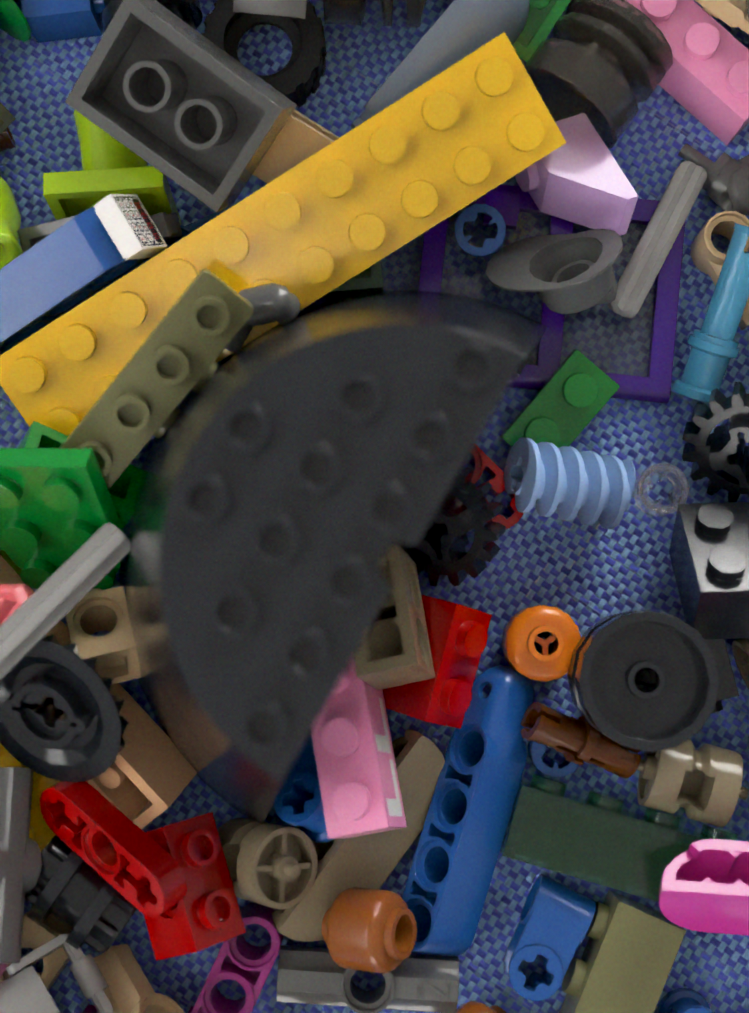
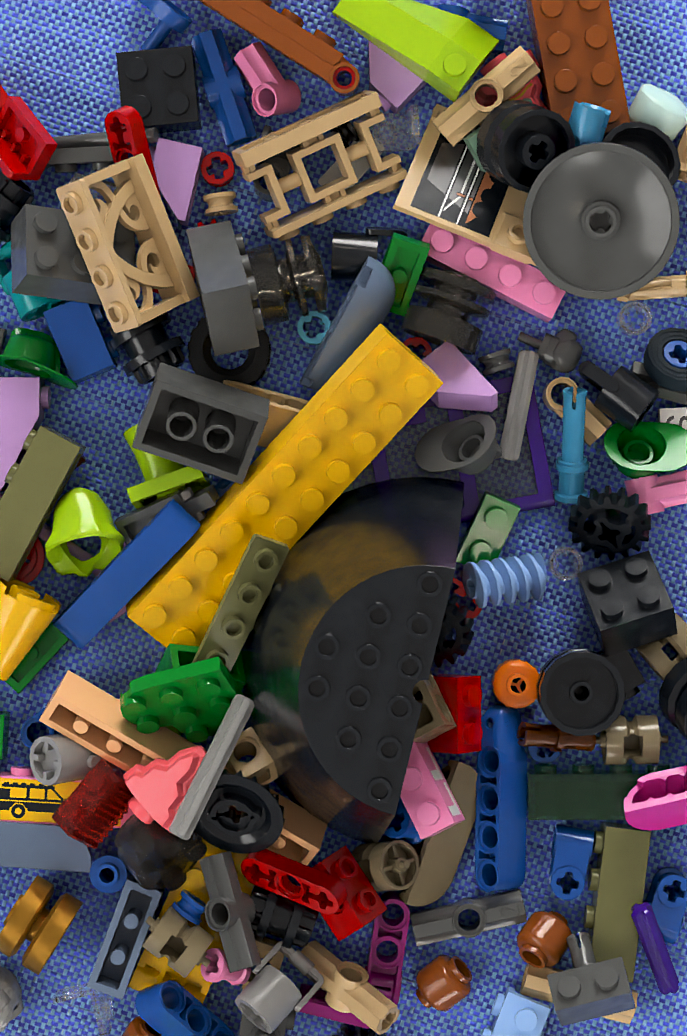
camera: 15 degrees left, 5 degrees up
(130, 226) = (193, 509): white tile -> none
(270, 304) = (292, 533): dark grey arm -> none
(369, 930) = (460, 886): dark orange head -> none
(387, 40) = (308, 319): none -> medium azure bush
(470, 216) = (414, 440): blue bush -> none
(644, 170) = (496, 362): none -> dark grey bush

